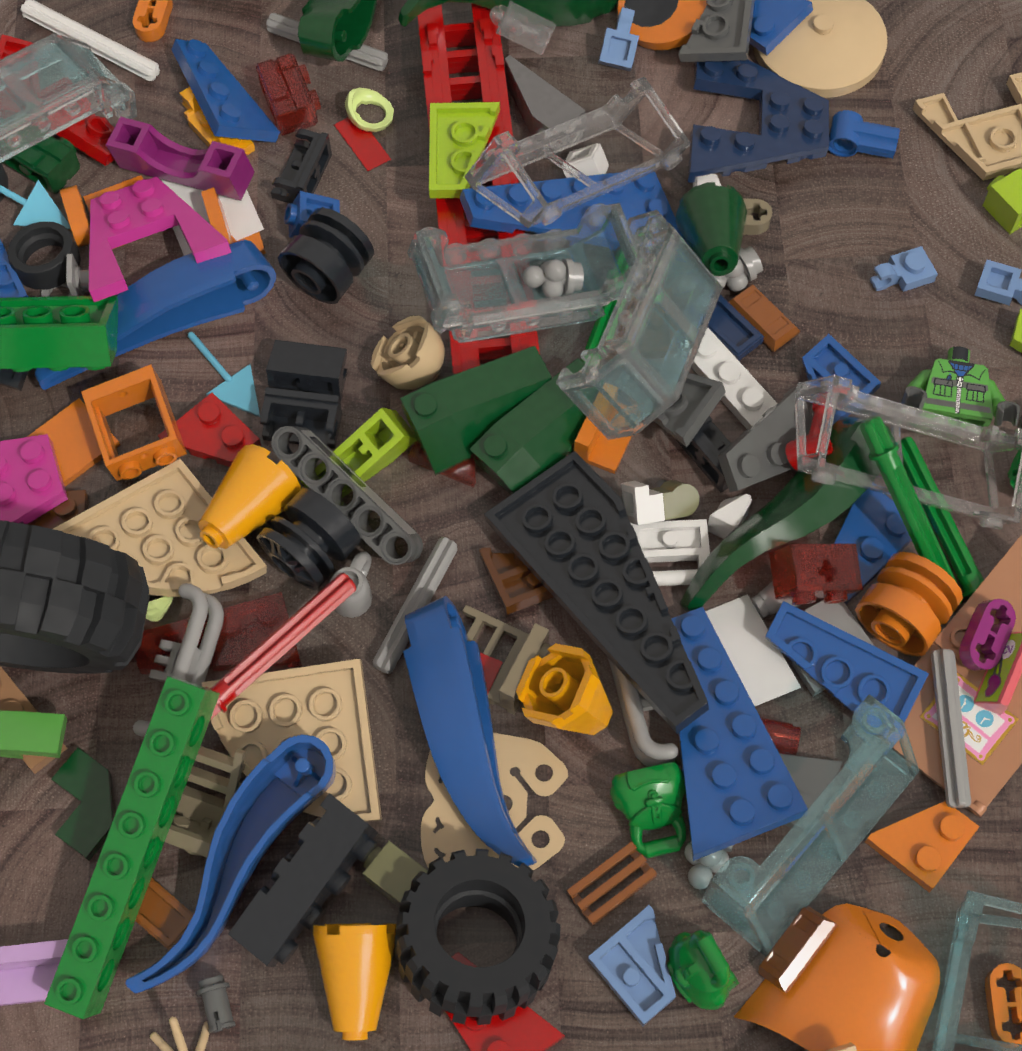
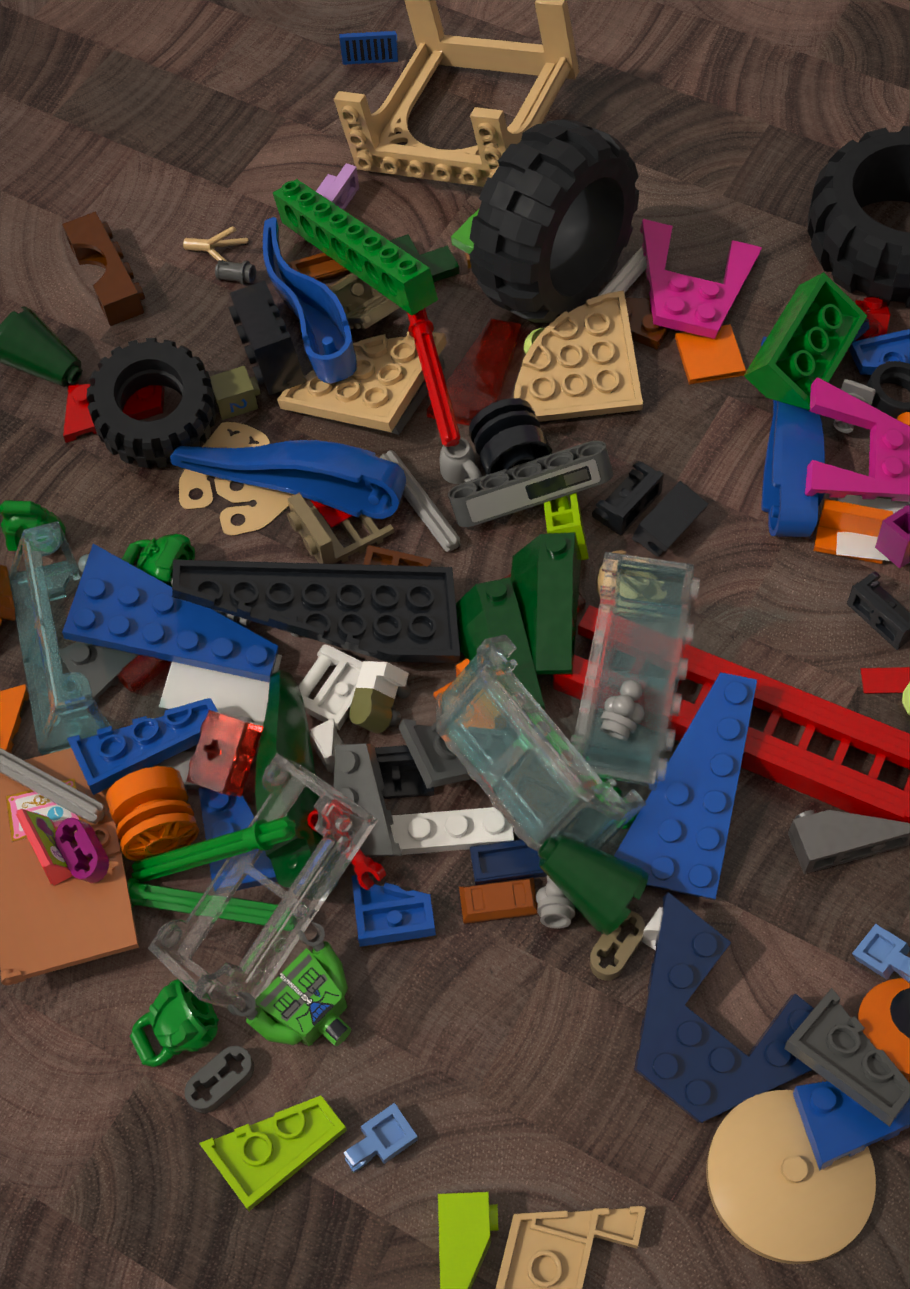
camera: 125 degrees right, 5 degrees down
(119, 395) = (693, 362): orange window -> none
(185, 658) = (472, 331): light grey piece -> none
(213, 431) = (657, 439): red wing -> none
(235, 390) = (692, 475): medium azure piece -> none
(247, 497) = (569, 413): light orange cone -> none
(303, 206) = (827, 594): blue bracket -> none
(326, 255) = (766, 569): black wheel -> none
(355, 973) = (204, 334): light orange cone -> none
(456, 142) = (819, 713): lime wing -> none
(508, 155) = (711, 900): clear windscreen -> none
(564, 691) = (264, 528): light orange cone -> none
(588, 160) = (755, 843): white slope -> none
(636, 967) = (68, 495): medium blue wing -> none
(638, 862) = (130, 493): dark orange tile -> none
(853, 135) = (642, 1115): blue piece -> none
(907, 269) = (460, 1062): medium blue plate -> none

